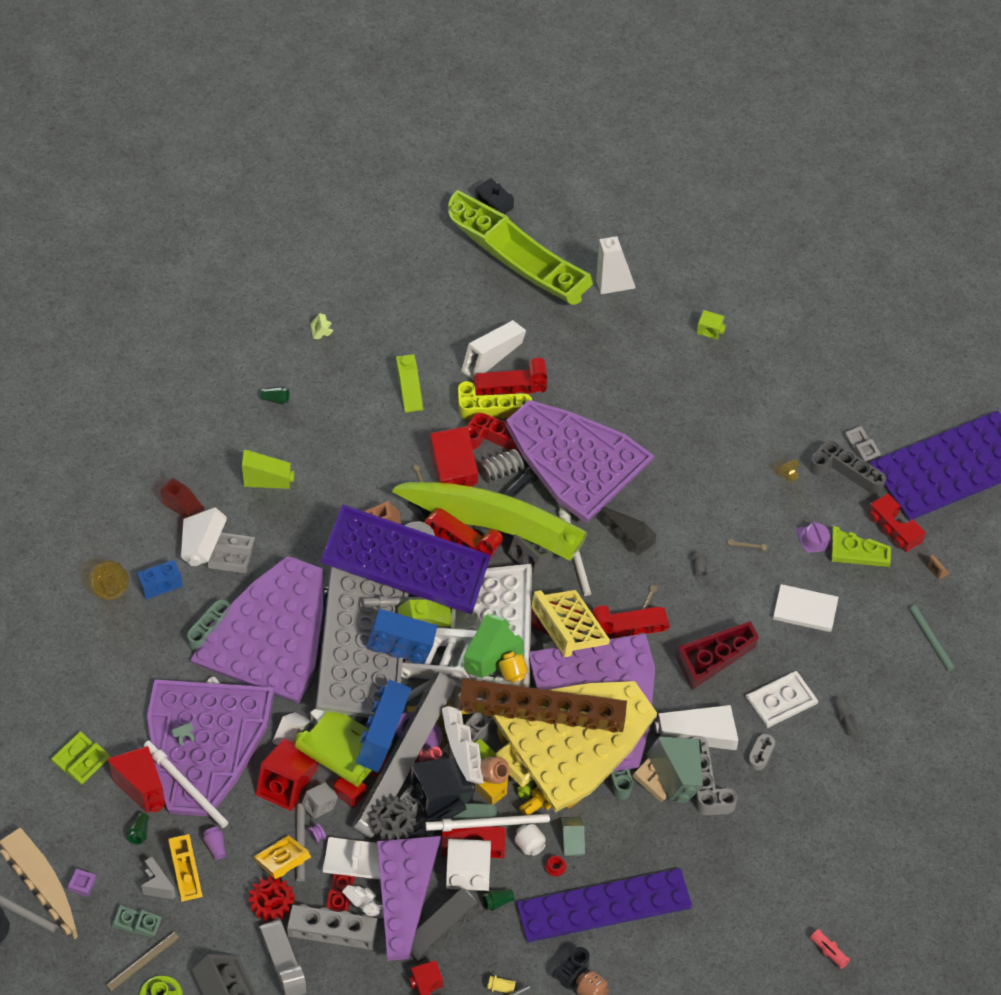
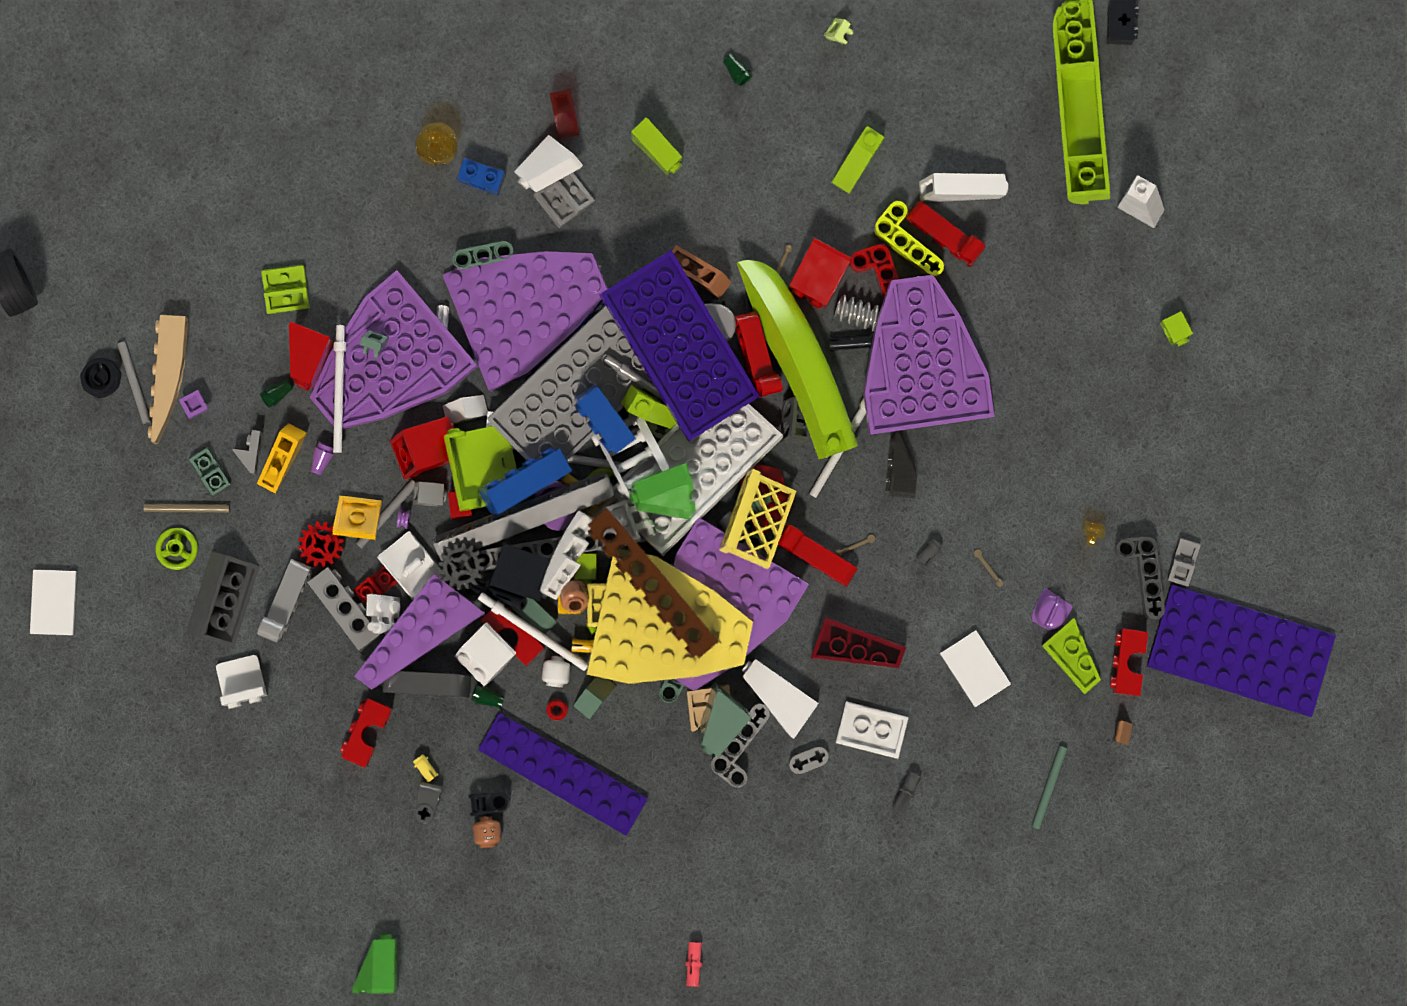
camera: 45 degrees right, 30 degrees up
(429, 755) = (540, 534): coral pin -> none
(513, 667) = (666, 526): yellow head -> none

